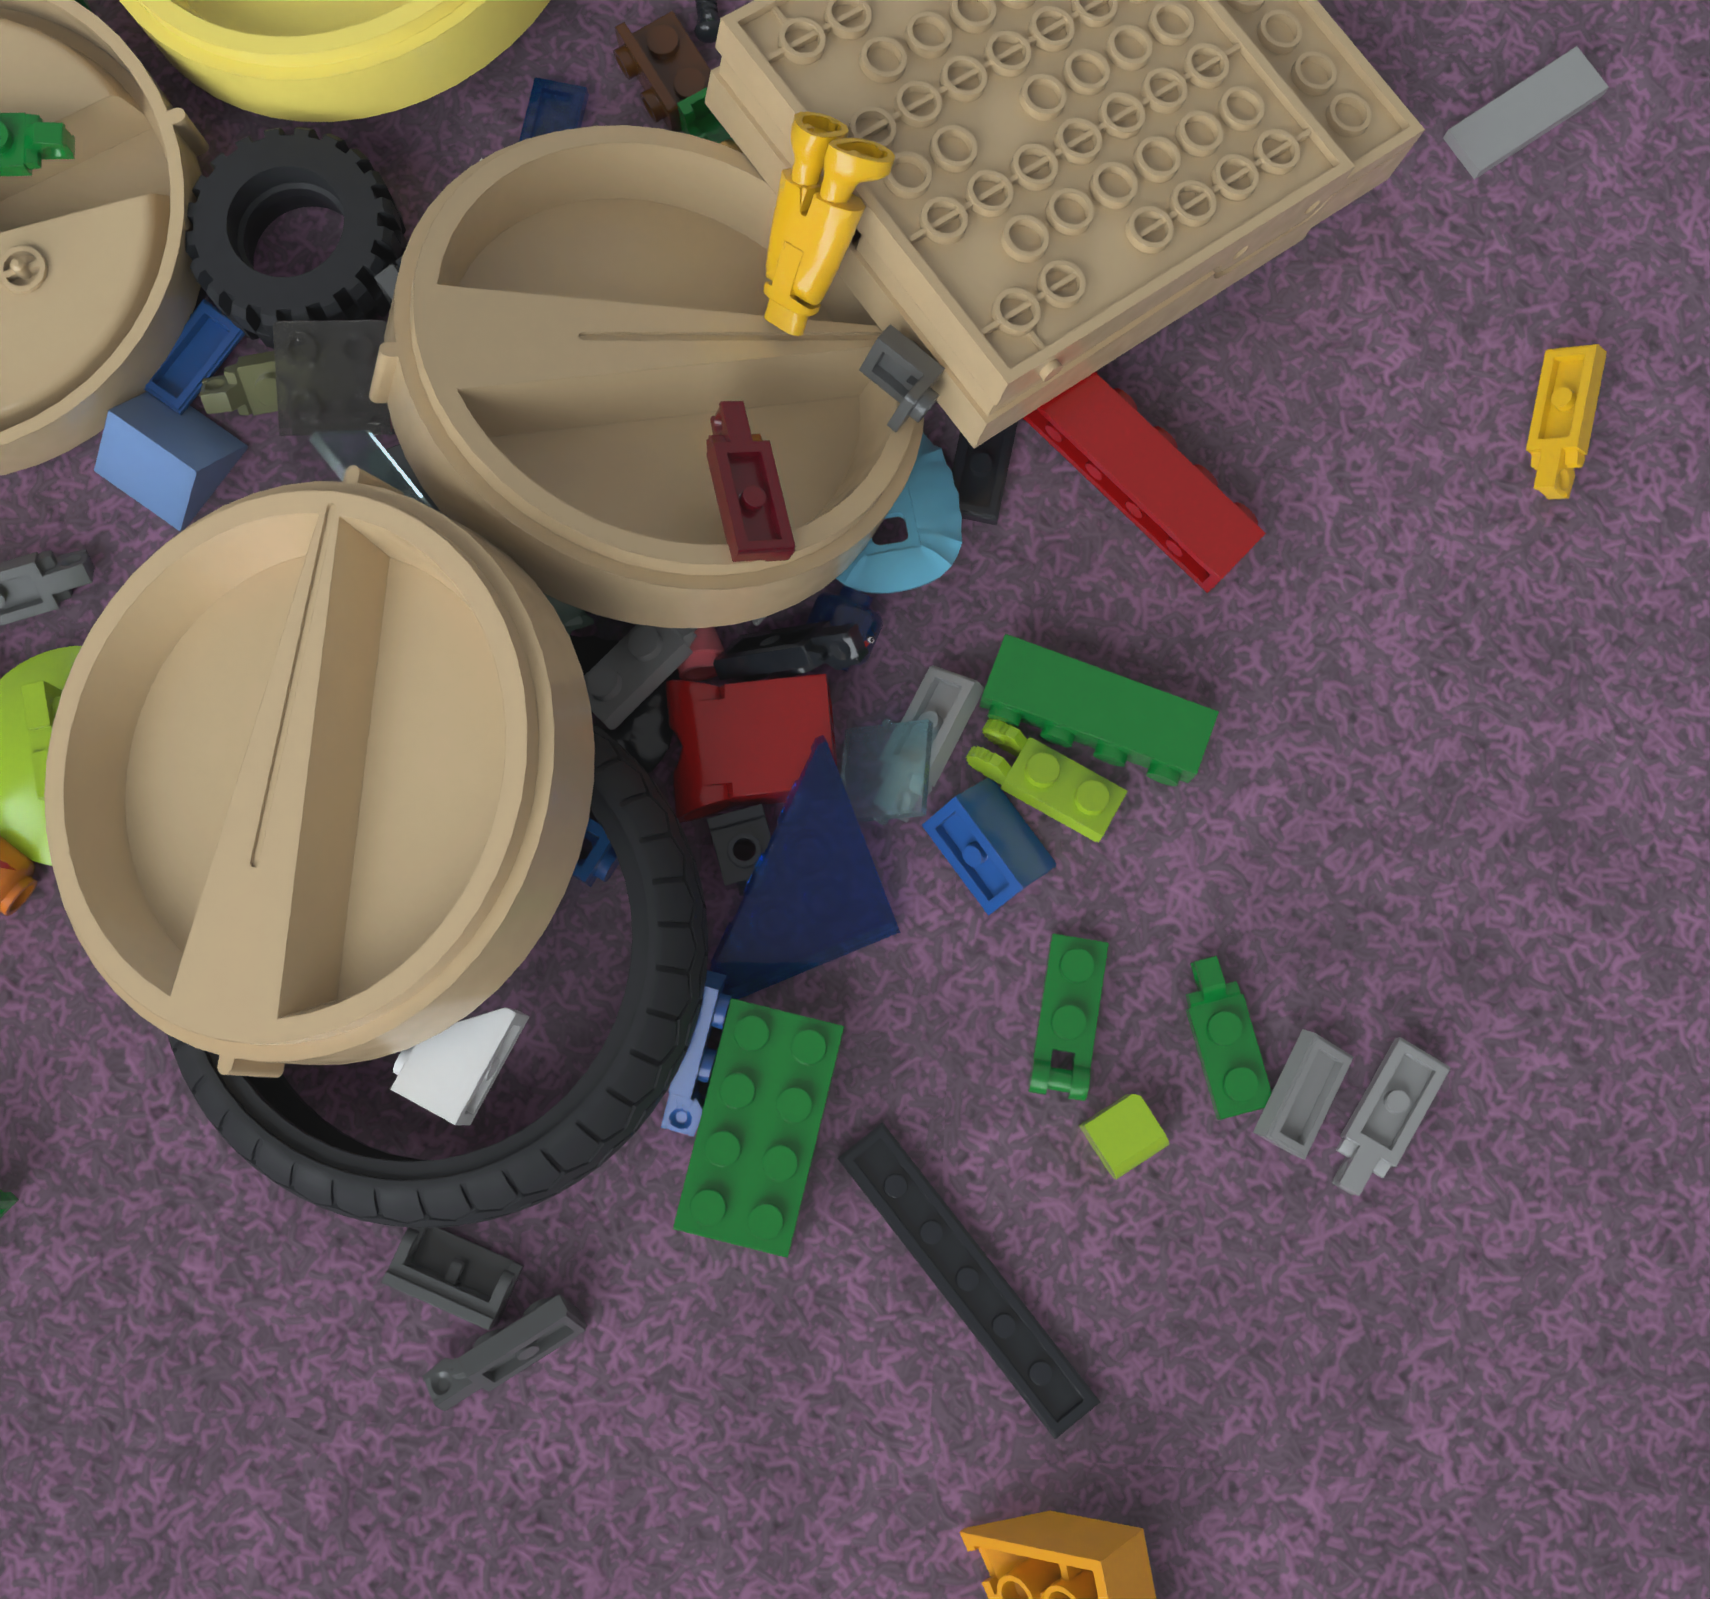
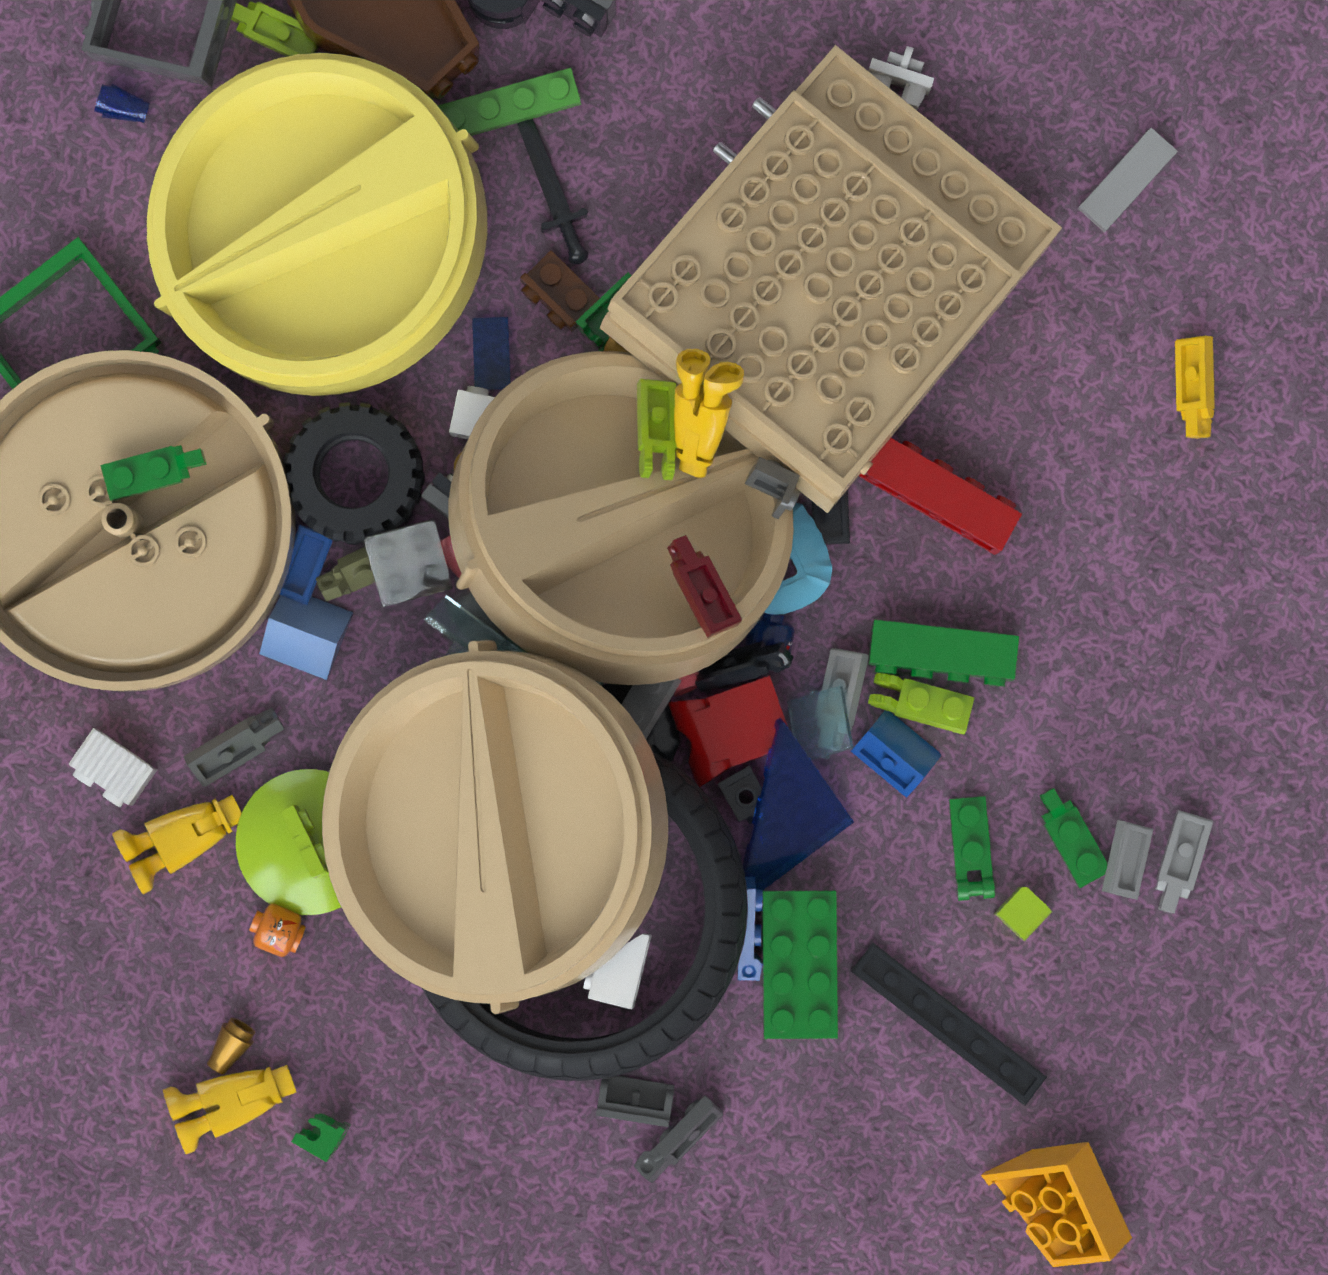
camera: 15 degrees left, 5 degrees up
(742, 247) = (656, 426): none -> lime hinge

